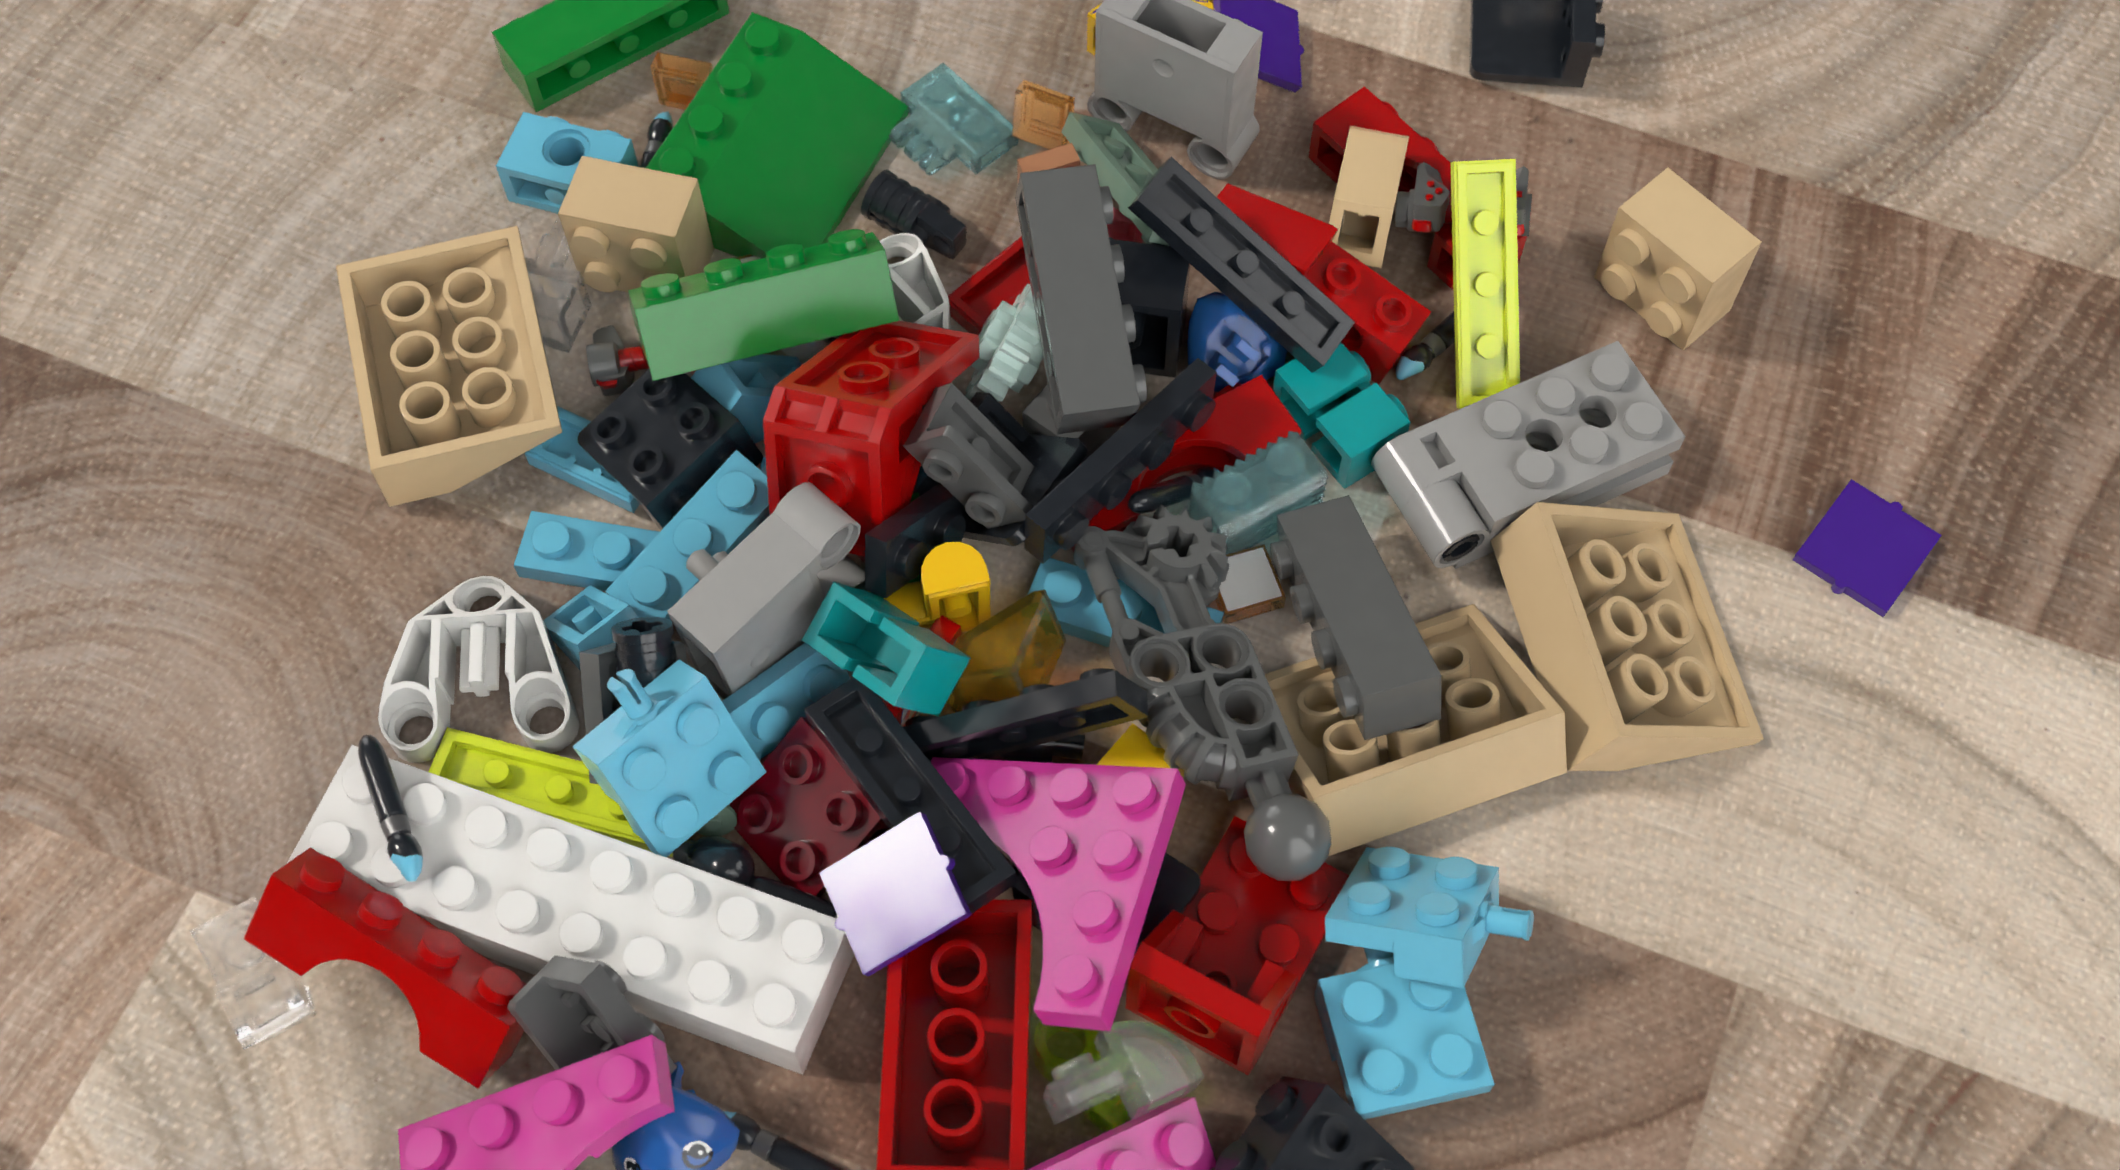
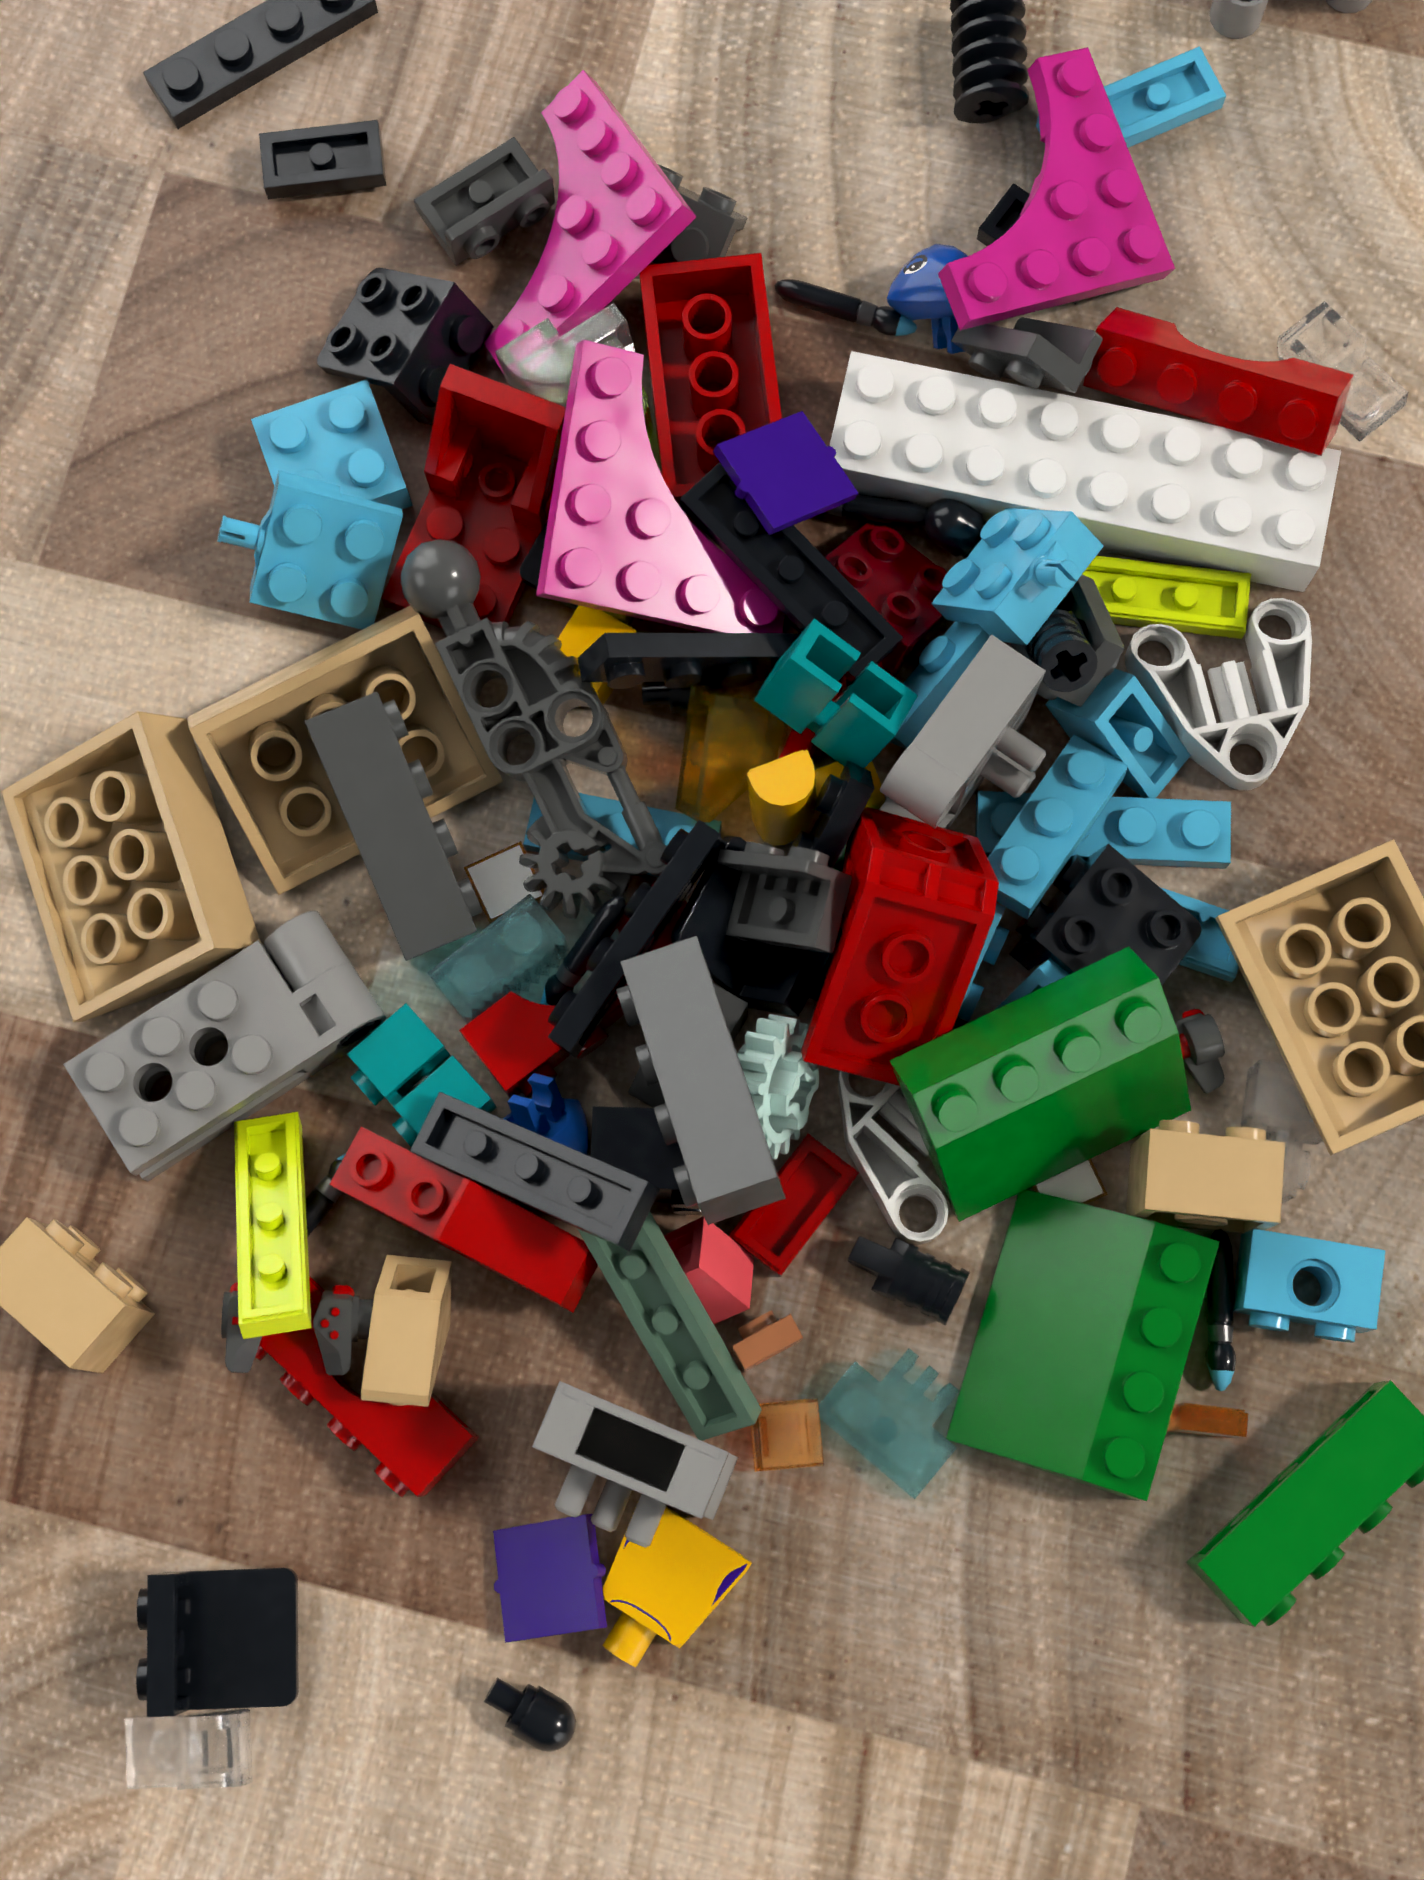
camera: 175 degrees right, 15 degrees up
(402, 845) = (1237, 462): black piece -> none

